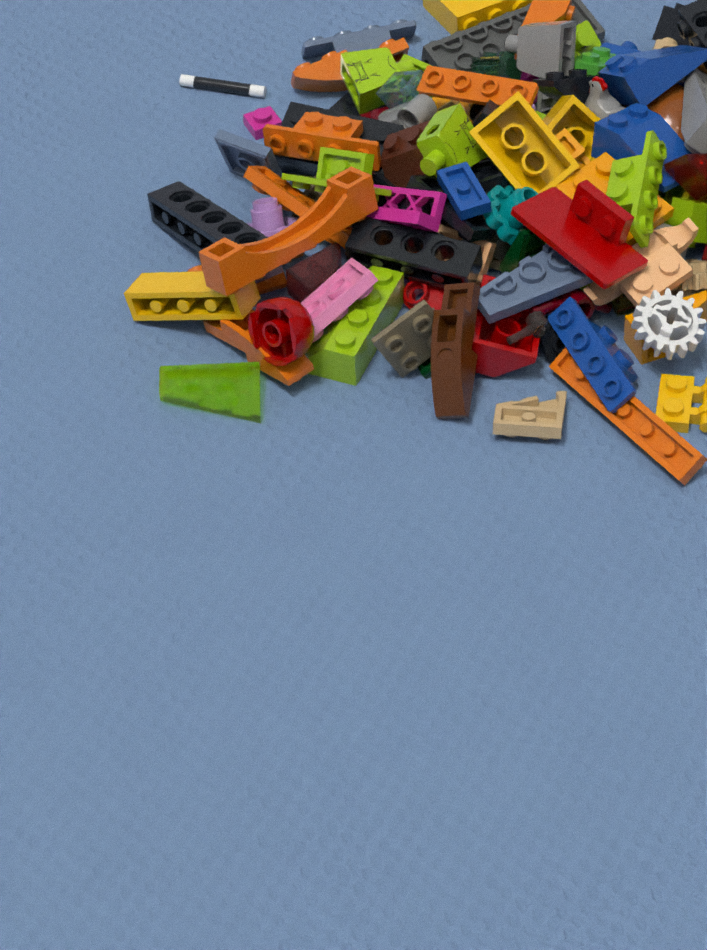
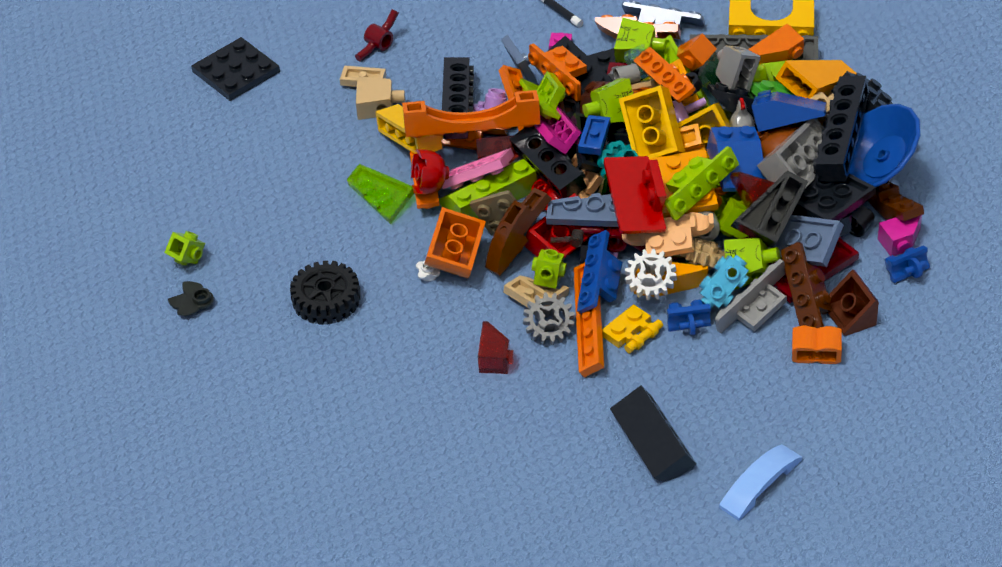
camera: 35 degrees right, 0 degrees up
(14, 575) = (185, 247): none -> lime brick
(25, 207) = (378, 36): none -> dark red piece
(52, 264) = (350, 74): none -> tan plate
(92, 637) = (192, 300): none -> pearl dark grey plate
(95, 280) = (375, 95): none -> tan torso
(269, 541) = (325, 292): none -> black wheel
(371, 452) = (427, 273): none -> white plate
(387, 401) = (455, 243): none -> orange brick
(467, 53) = (696, 52): none -> orange slope
(533, 376) = (548, 268): none -> lime brick
(554, 505) = (494, 351): none -> clear red slope
(585, 435) = (556, 325): none -> light grey gear
(626, 29) = (809, 77): none -> light orange slope

